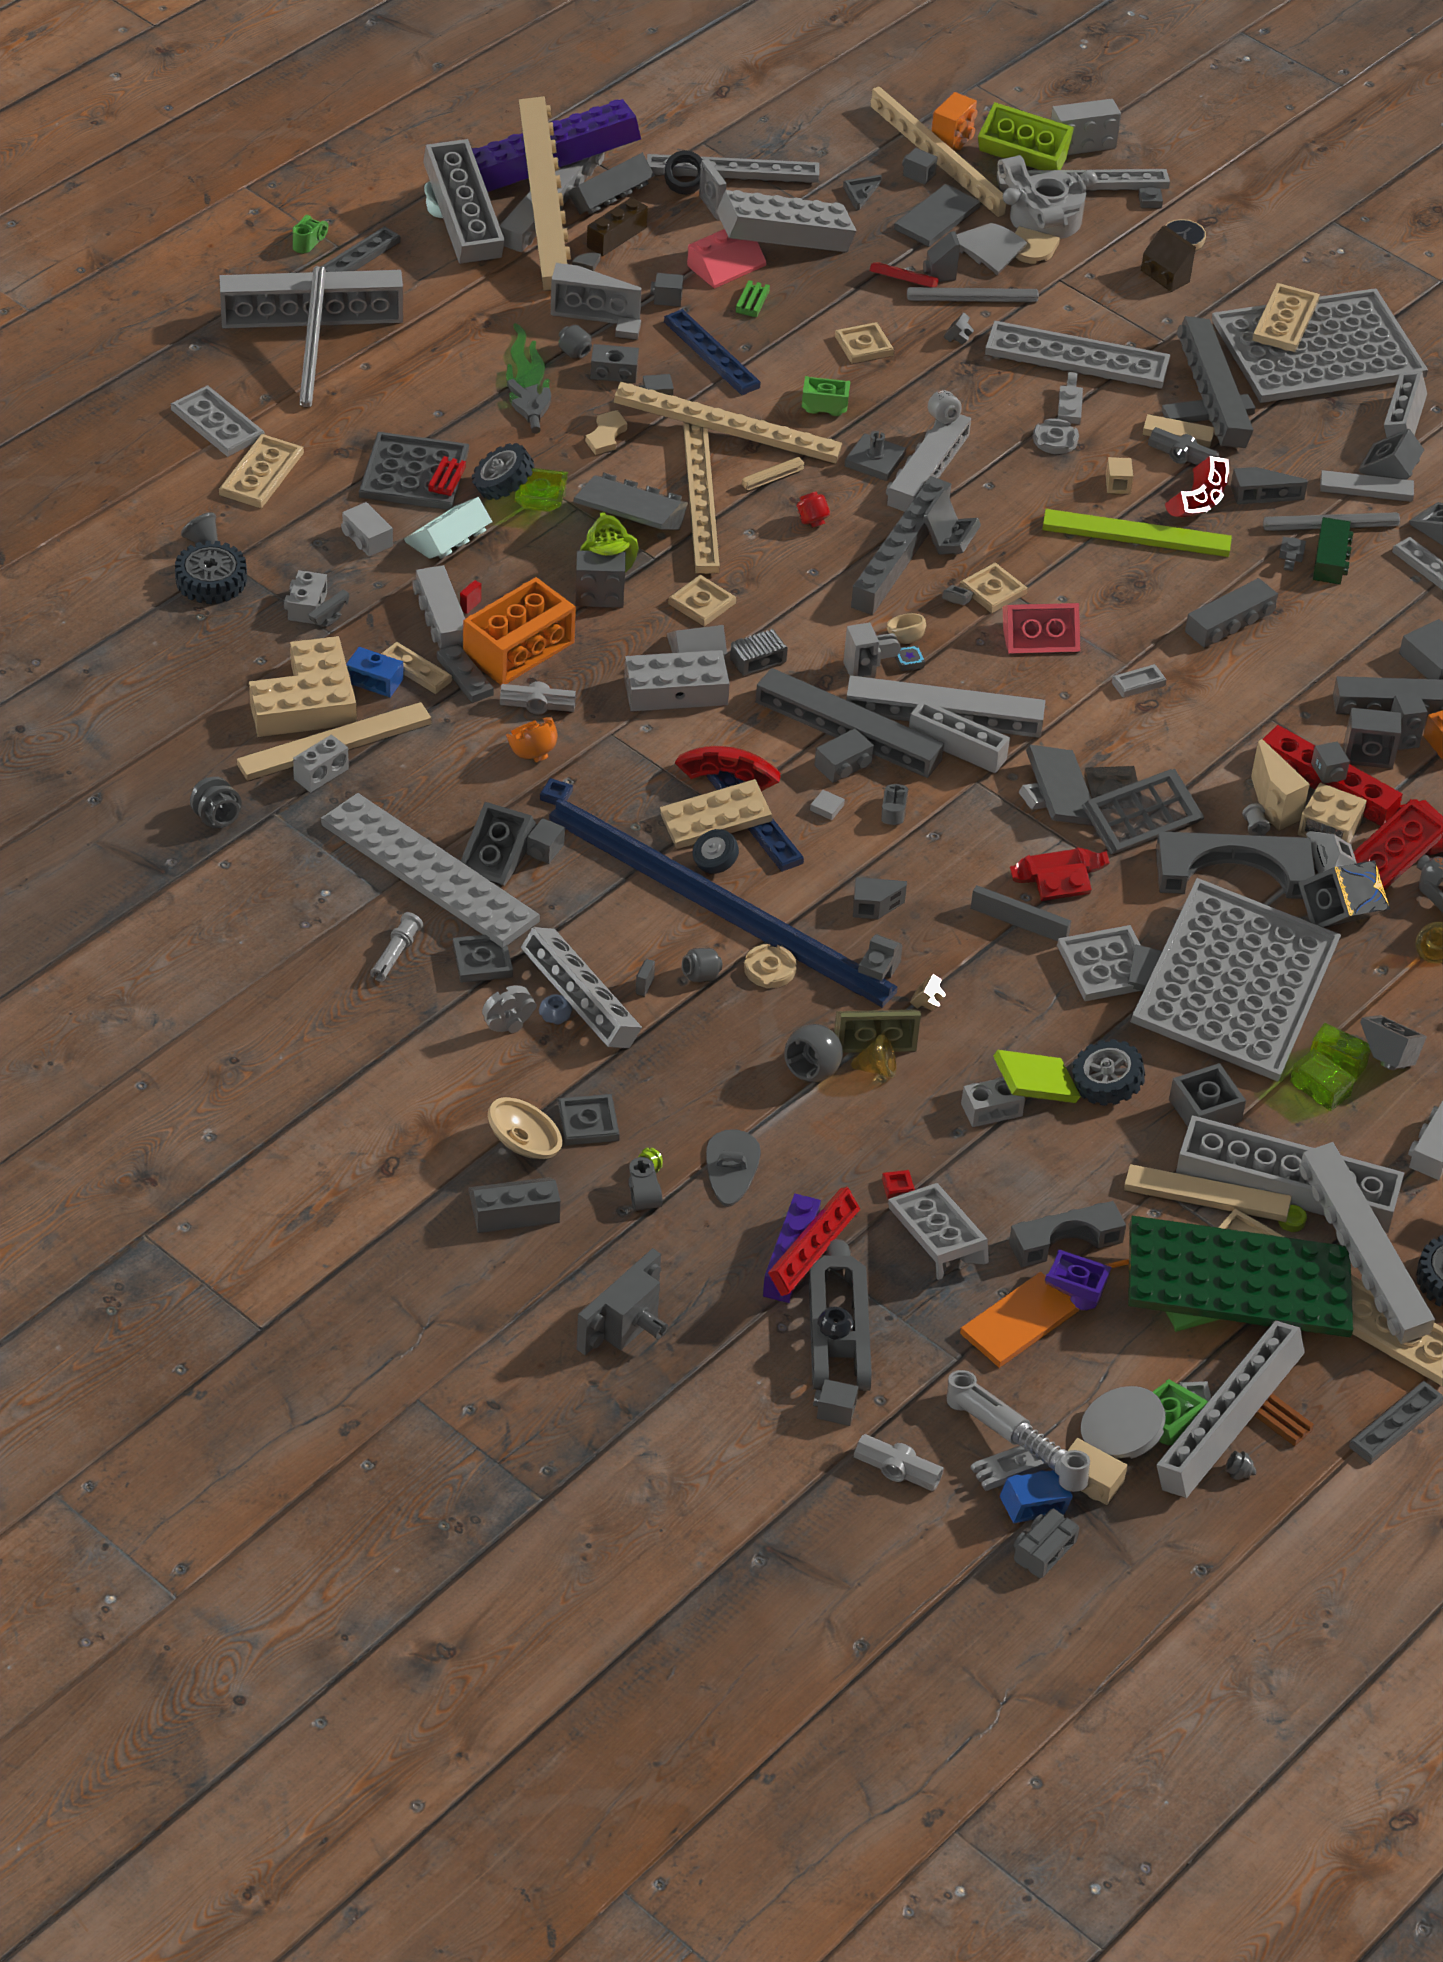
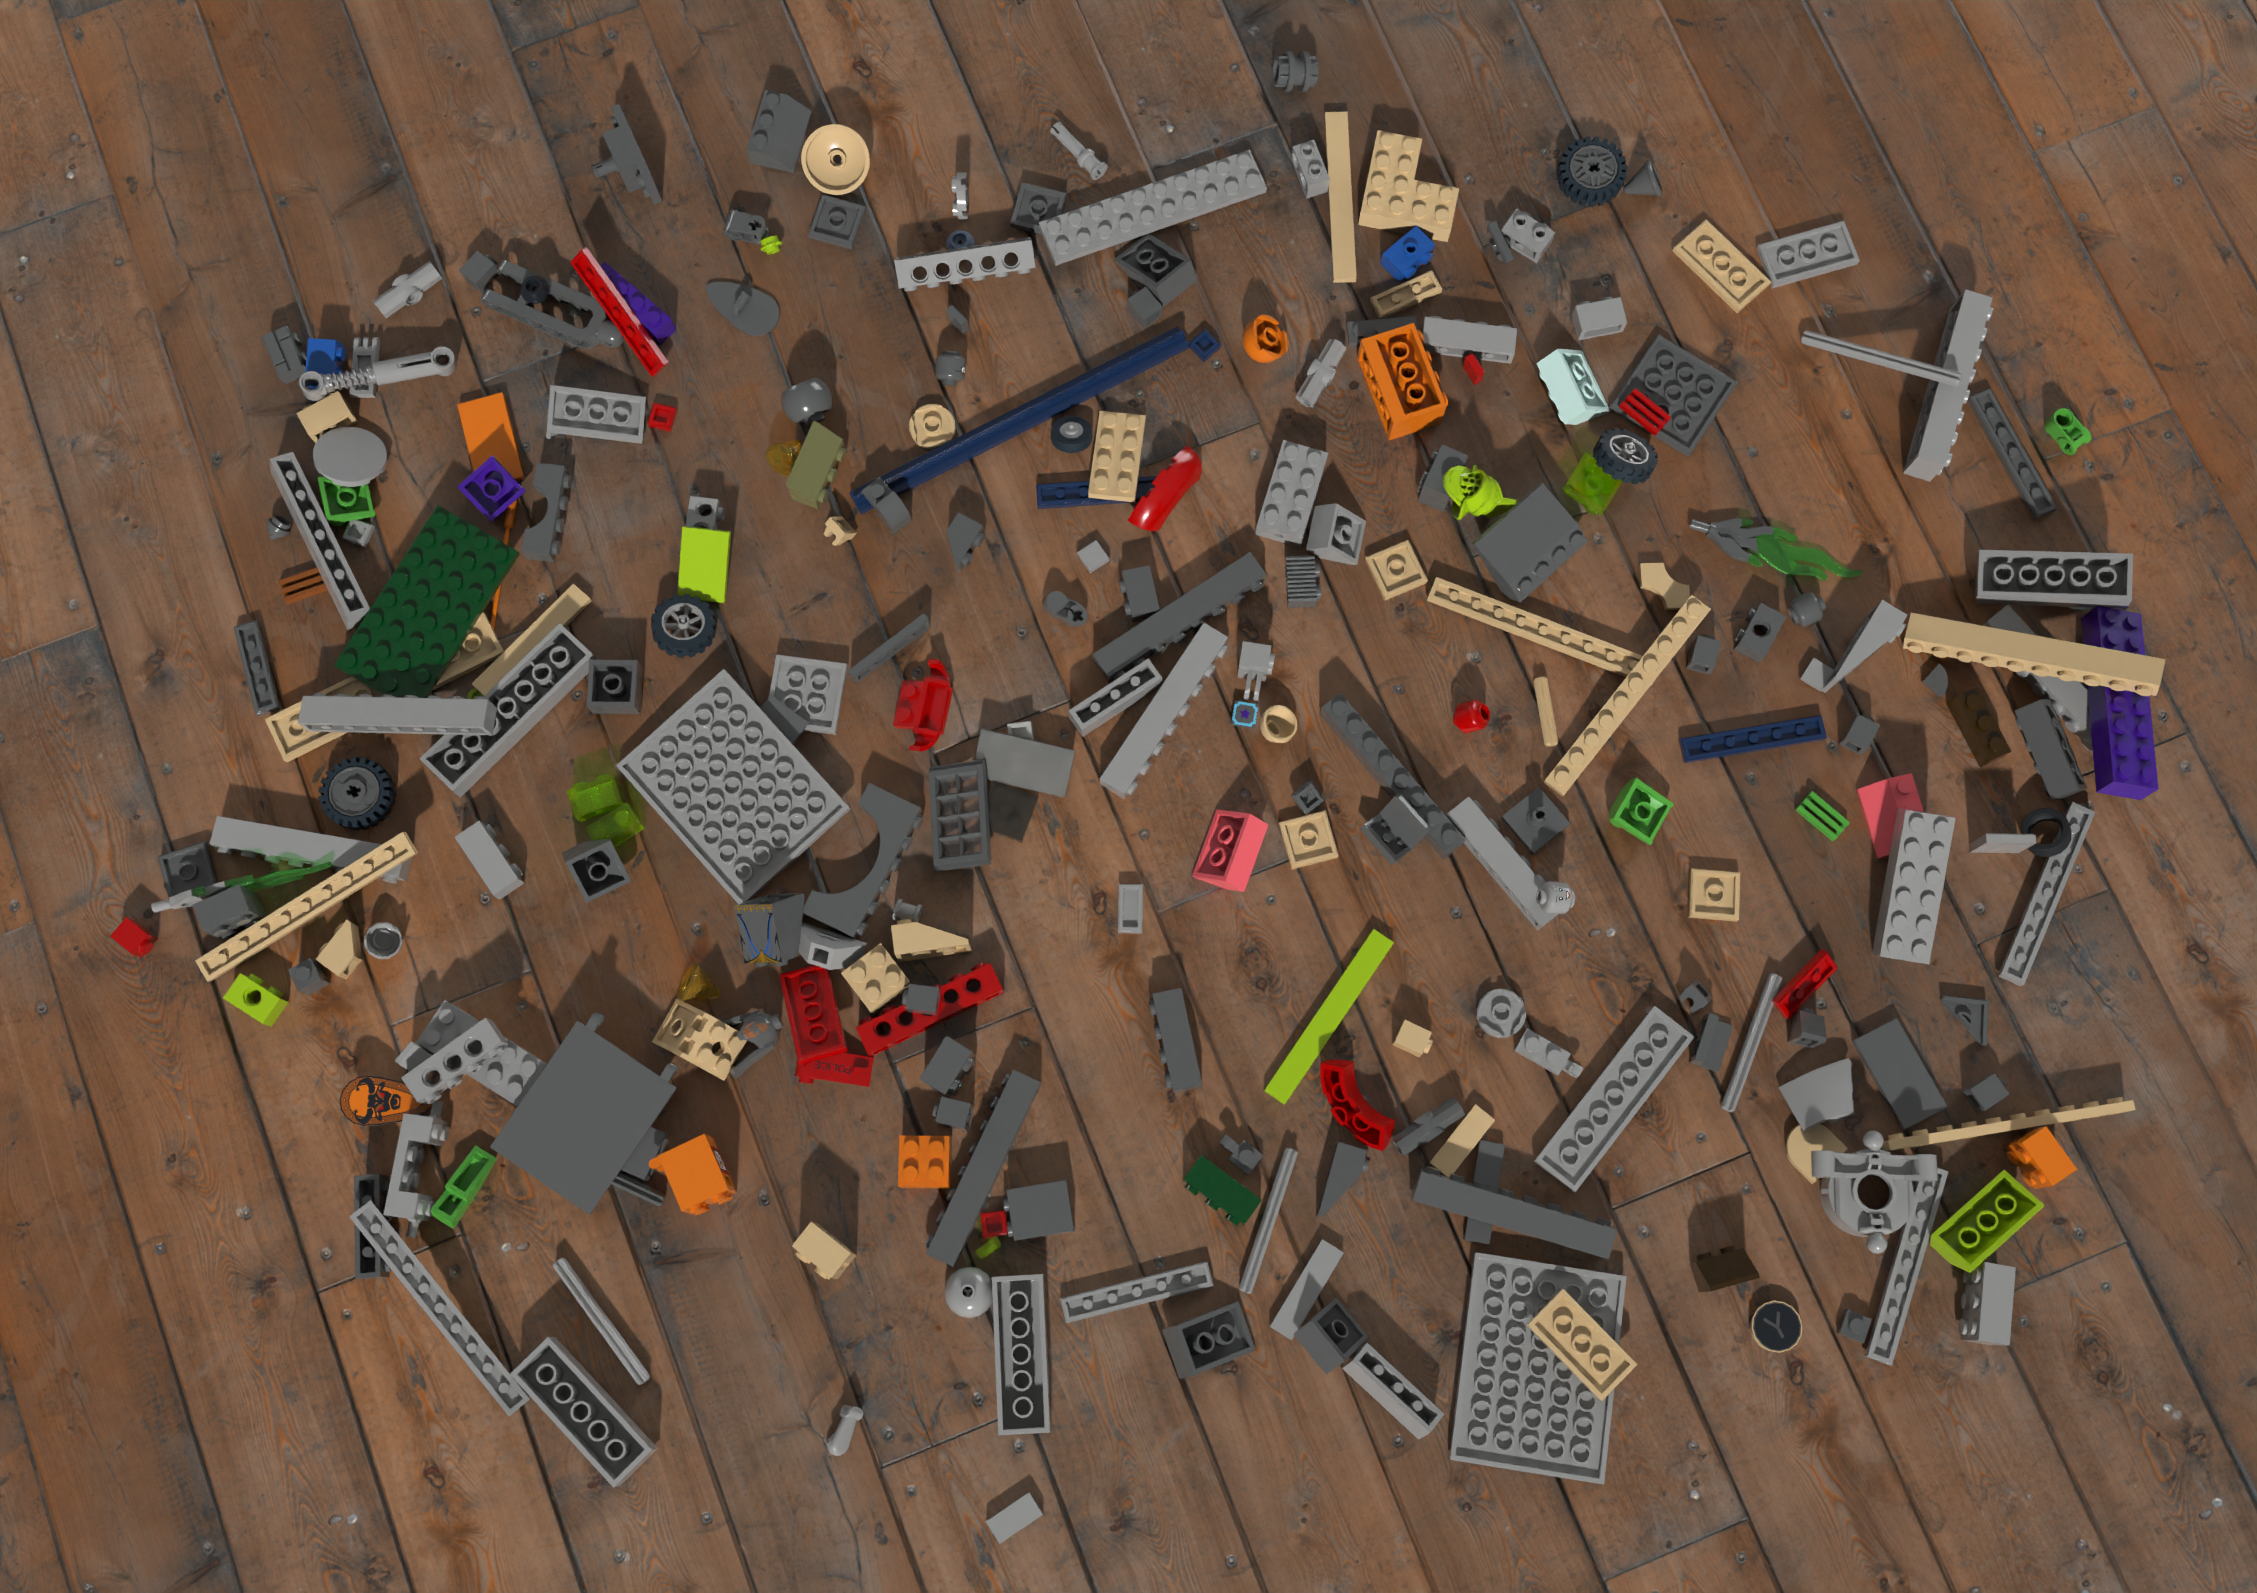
camera: 120 degrees right, 30 degrees up
(984, 315) = (1711, 1043): none -> dark grey panel

